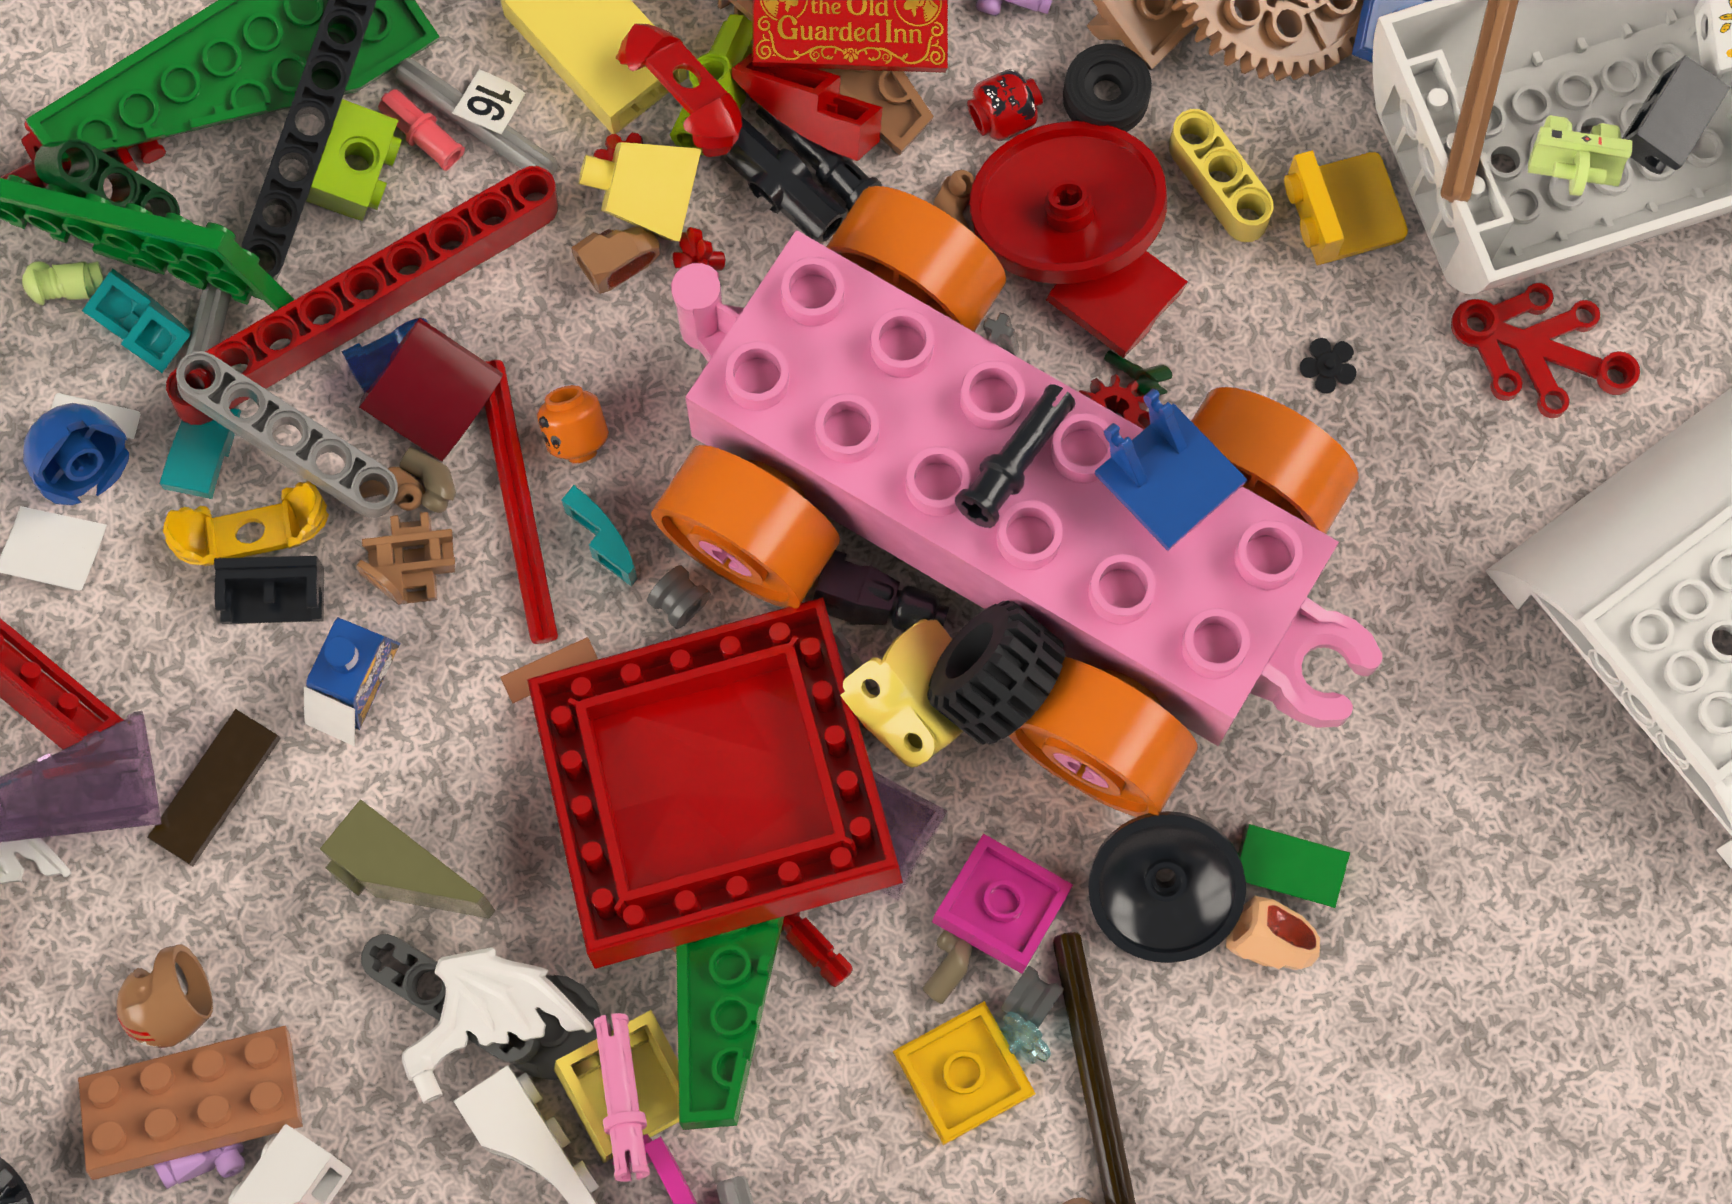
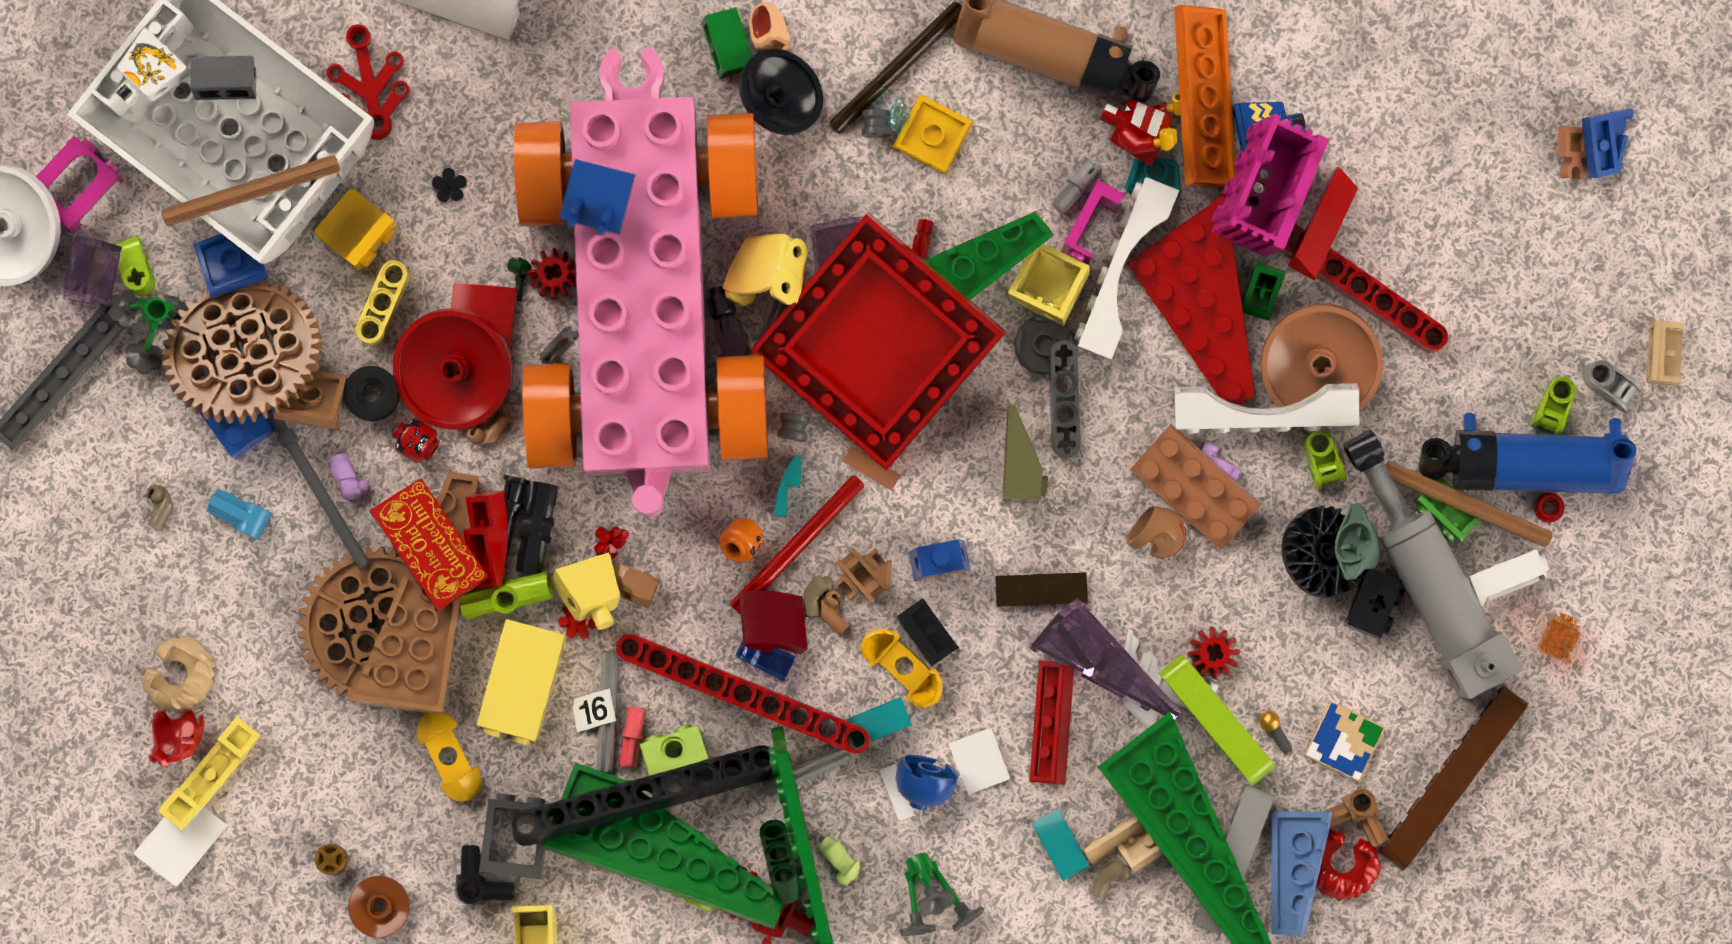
camera: 125 degrees left, 10 degrees up
(138, 320) = (834, 803): teal slope -> none
(274, 413) = (848, 655): light grey beam -> none
(329, 716) = (970, 553): white sticker -> none
(490, 1001) = (1054, 376): white animal -> none
(621, 1097) = (1059, 273): bright pink pin -> none
(712, 110) = (517, 624): red piece -> none
(951, 969) = (883, 171): dark tan arm -> none
(996, 672) = (739, 230): black tyre -> none
(1002, 903) = (839, 167): dark pink tile -> none
(1003, 472) = (648, 278): black pin -> none
(1579, 155) = (280, 109): yellowish green hips -> none

